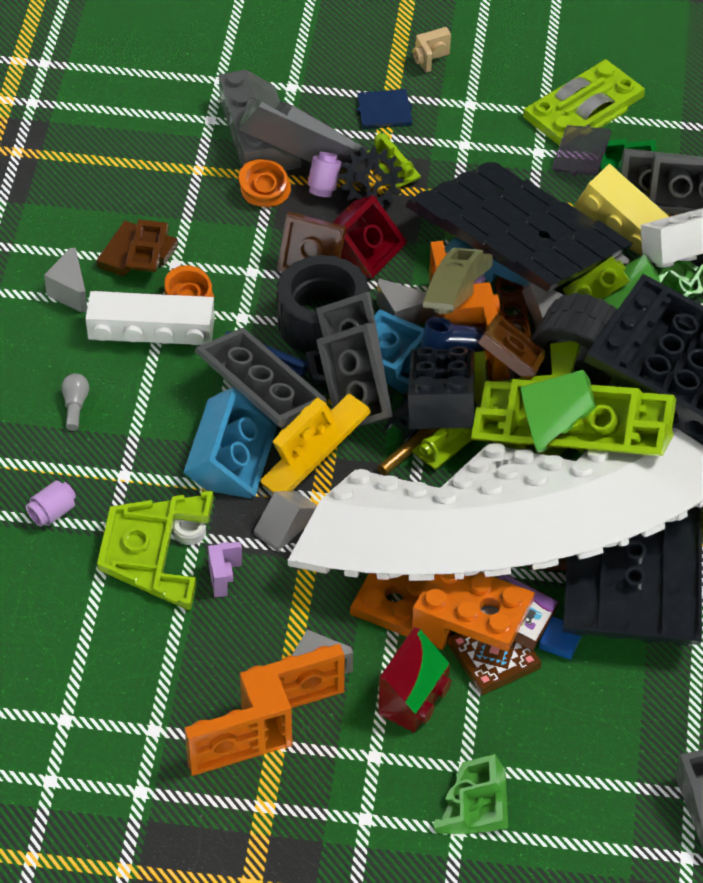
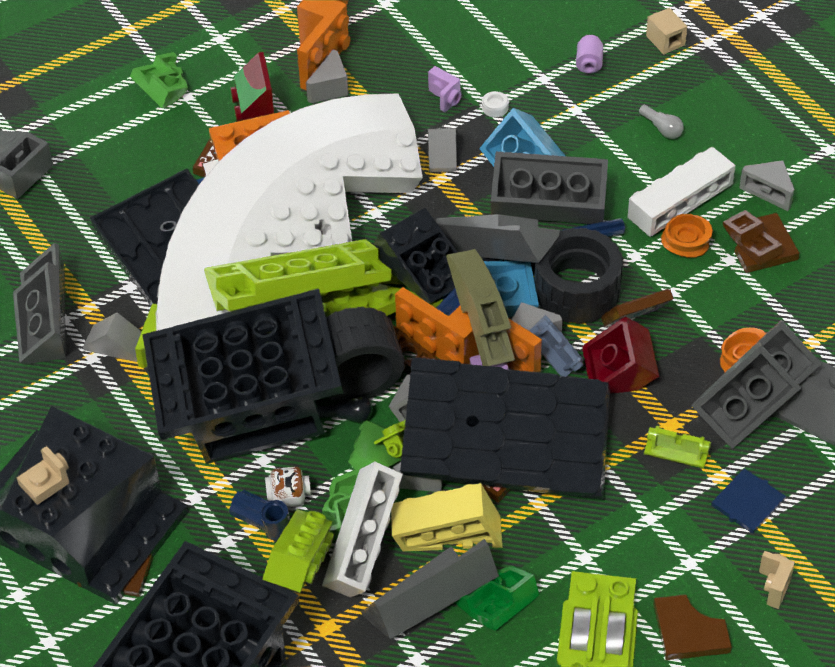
camera: 140 degrees right, 0 degrees up
(139, 540) = (508, 67): lime wing -> none
(311, 440) = (473, 178): yellow bracket -> none
(324, 174) = (703, 378): lavender brick -> none
(372, 162) = (667, 400): black gear -> none
(403, 269) = (556, 347): none -> sand blue hinge
(512, 347) = (390, 285): reddish brown tile -> none
(522, 67) = (688, 632): none -> reddish brown tile
(556, 405) = (309, 254): bright green slope -> none
(581, 150) = (541, 563): piece -> none

